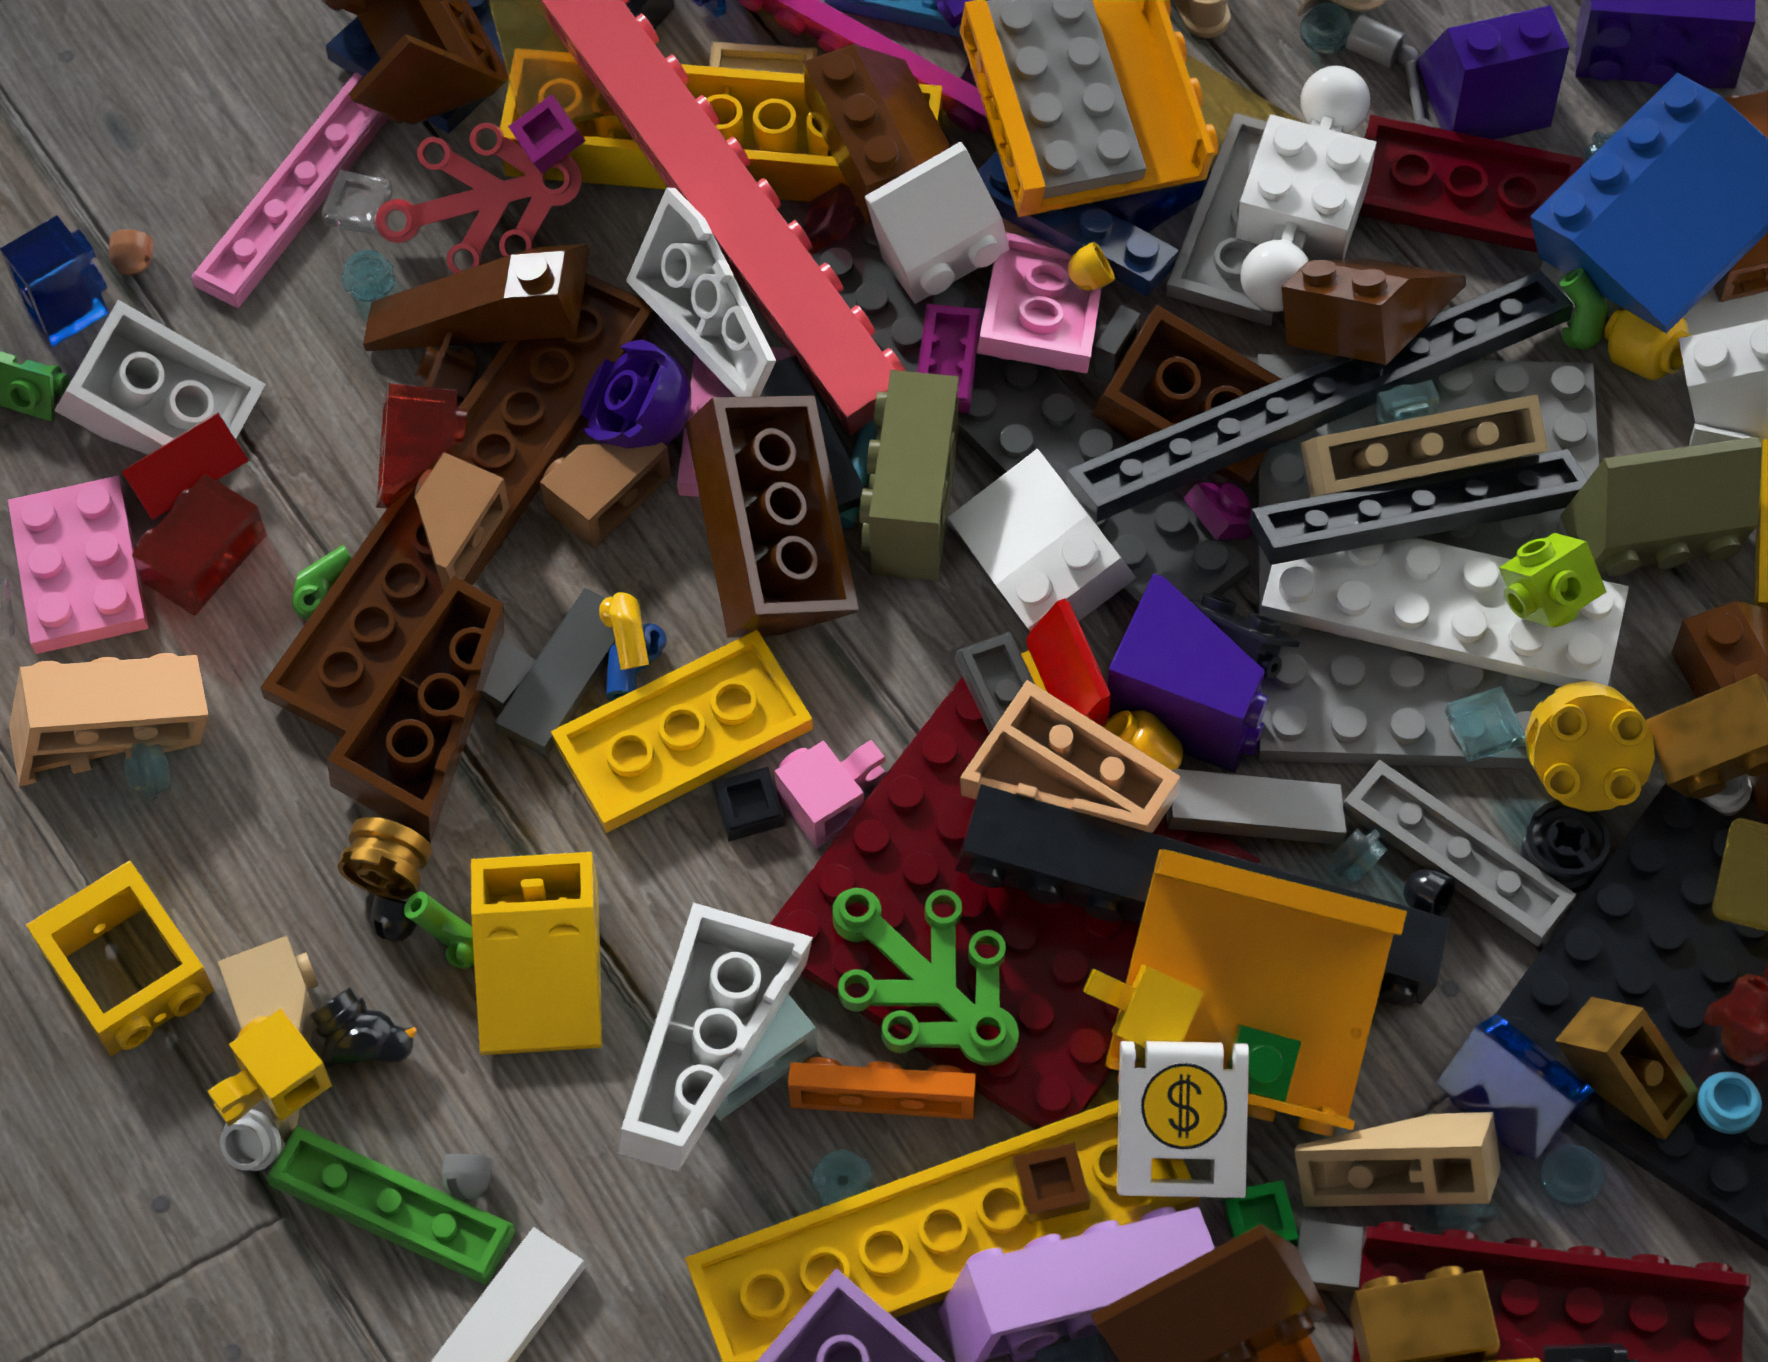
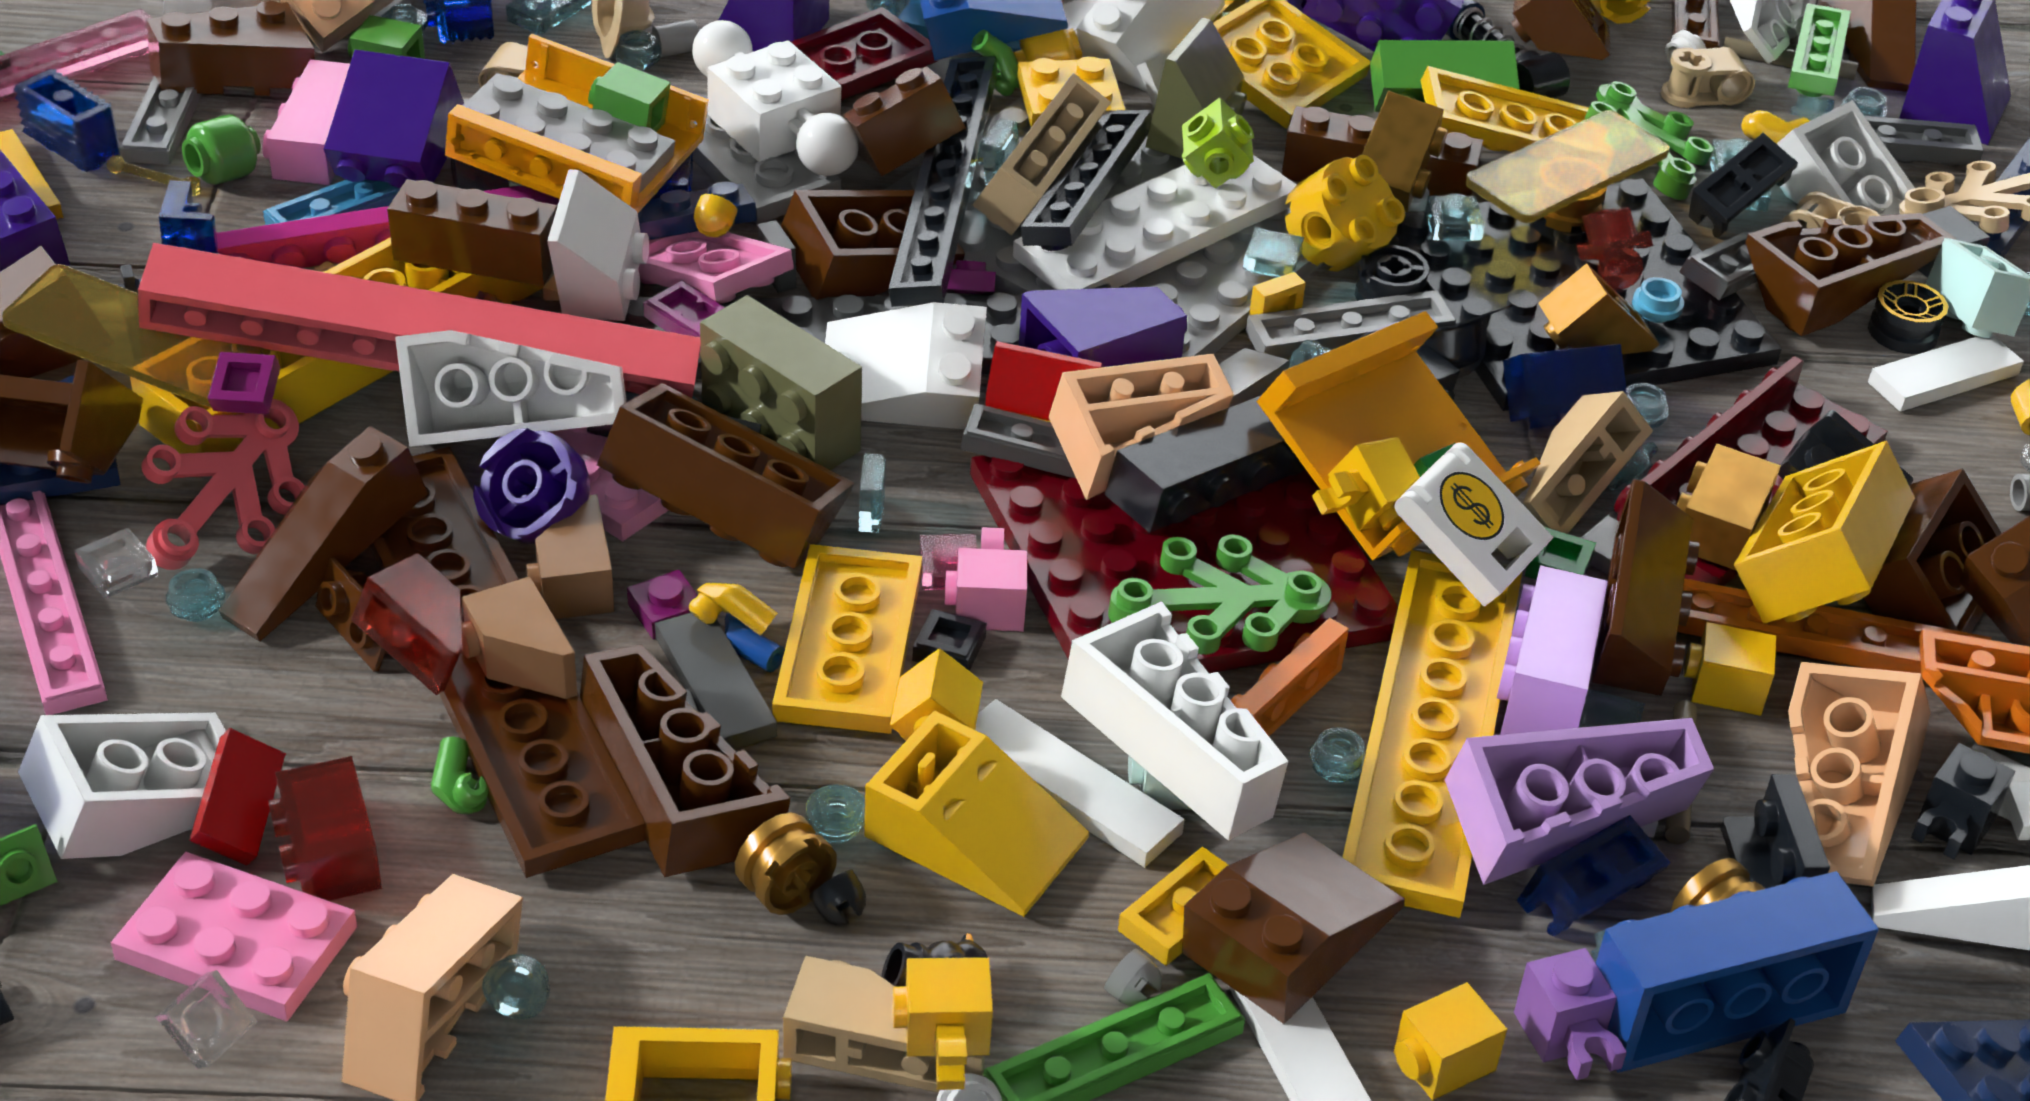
camera: 60 degrees left, 20 degrees down
(444, 927) = (890, 869): bright green arm -> none
(479, 836) = (836, 812): none -> clear light blue plate
(568, 1164) = (1158, 915): none -> yellow plate
(590, 1249) = (1285, 922): none -> reddish brown slope
(623, 571) = (660, 599): none -> magenta plate
(636, 846) = (936, 685): none -> yellow brick
(654, 939) = (1085, 789): none -> white tile
(843, 731) = (941, 555): none -> clear pink plate
(865, 629) = (872, 492): none -> clear light blue tile
(1051, 1182) = (1457, 625): reddish brown plate -> none
(1156, 99) = (631, 96): none -> bright green brick
(1428, 768) = (1278, 294): none -> yellow plate
(1492, 952) = (1463, 343): none -> black piece
(1589, 399) = (1044, 78): none -> yellow plate
(1697, 843) = (1454, 217): none -> clear light blue plate

